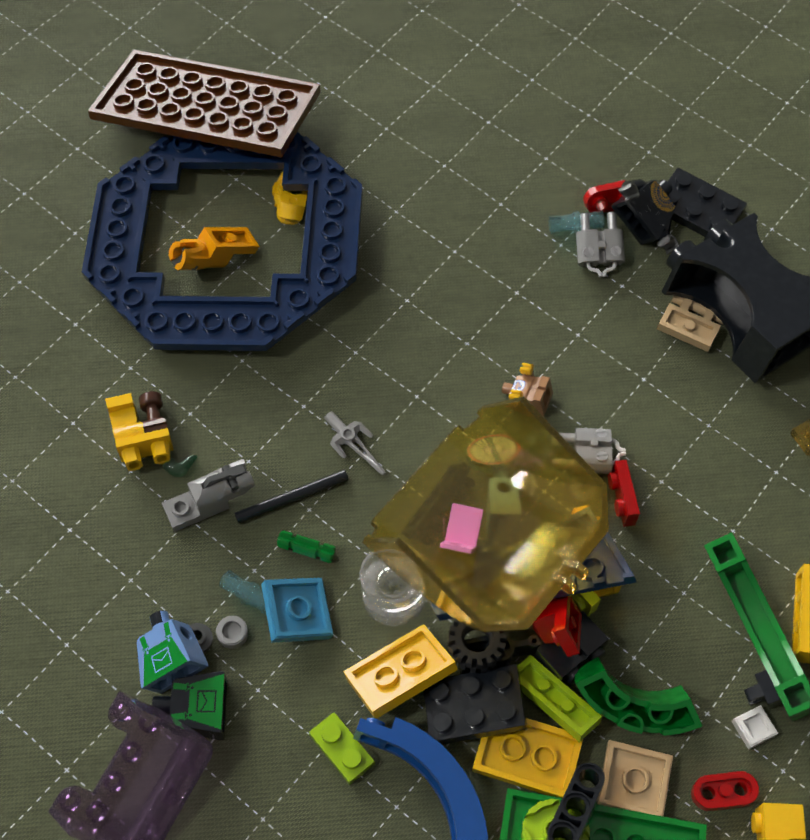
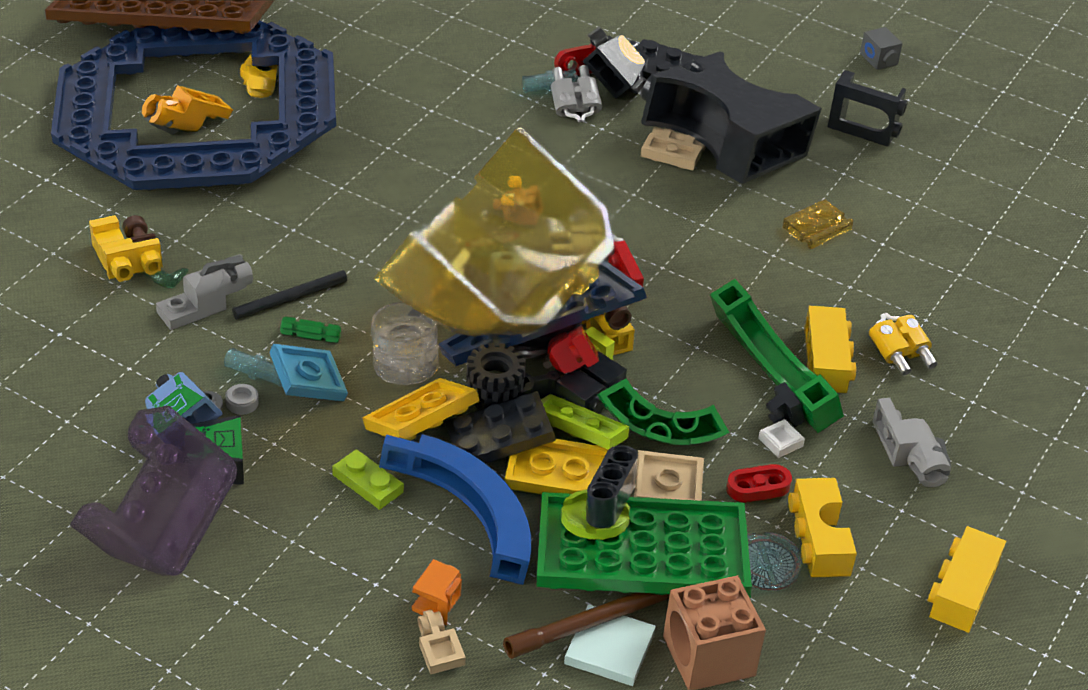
camera: 10 degrees left, 20 degrees down
(348, 436) = (343, 247): light grey piece -> none
(463, 528) = (474, 268): bright pink bracket -> none

